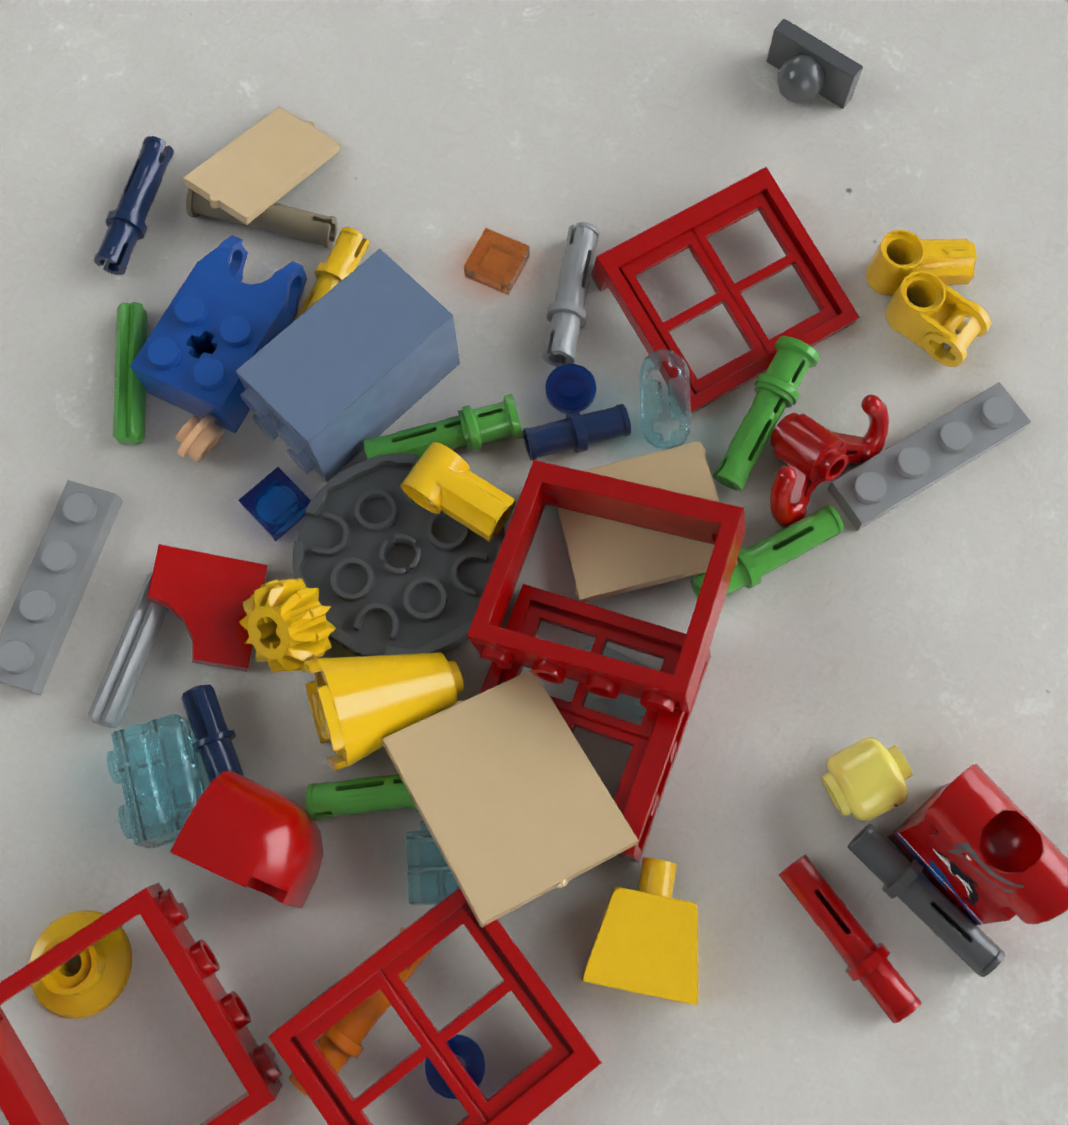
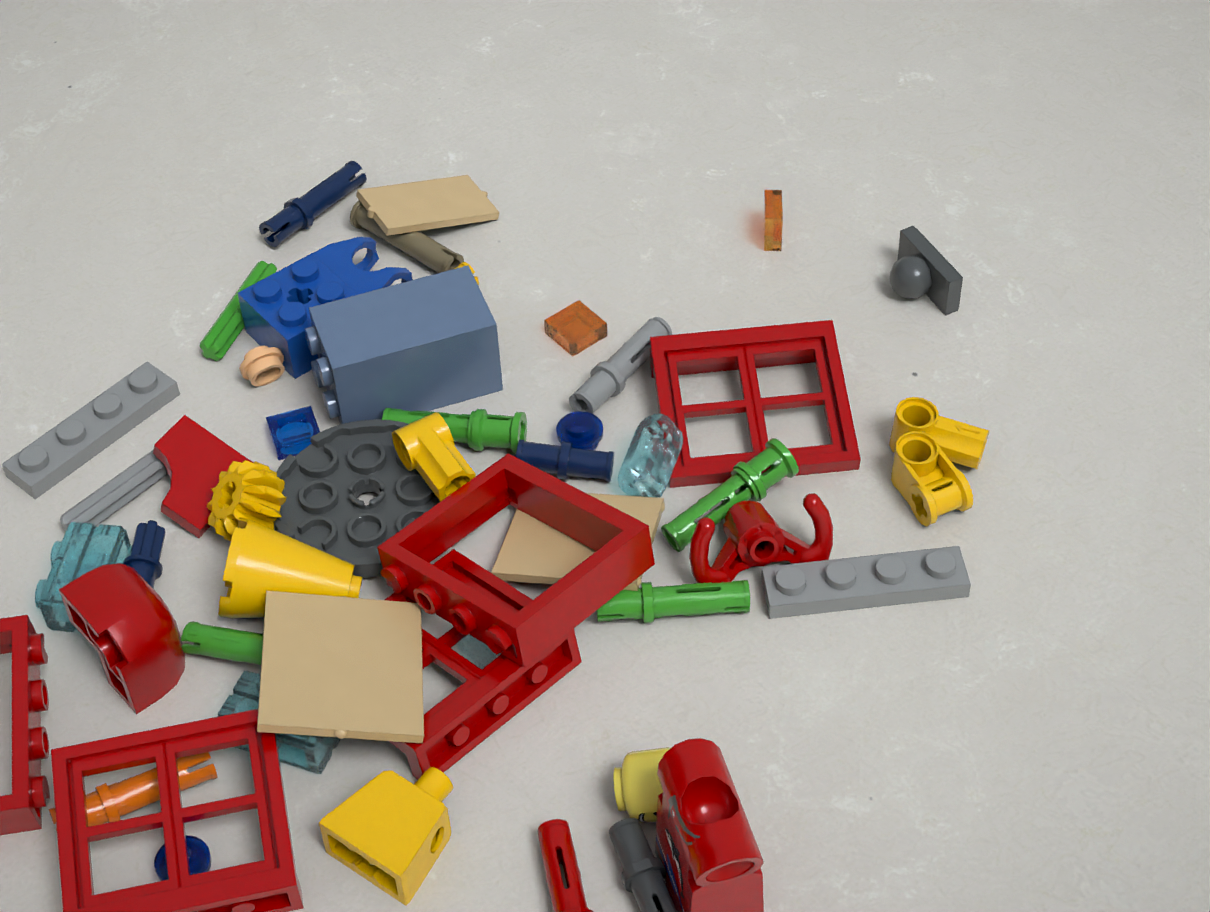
camera: 25 degrees right, 25 degrees down
(631, 56) = (773, 220): none -> clear orange tile

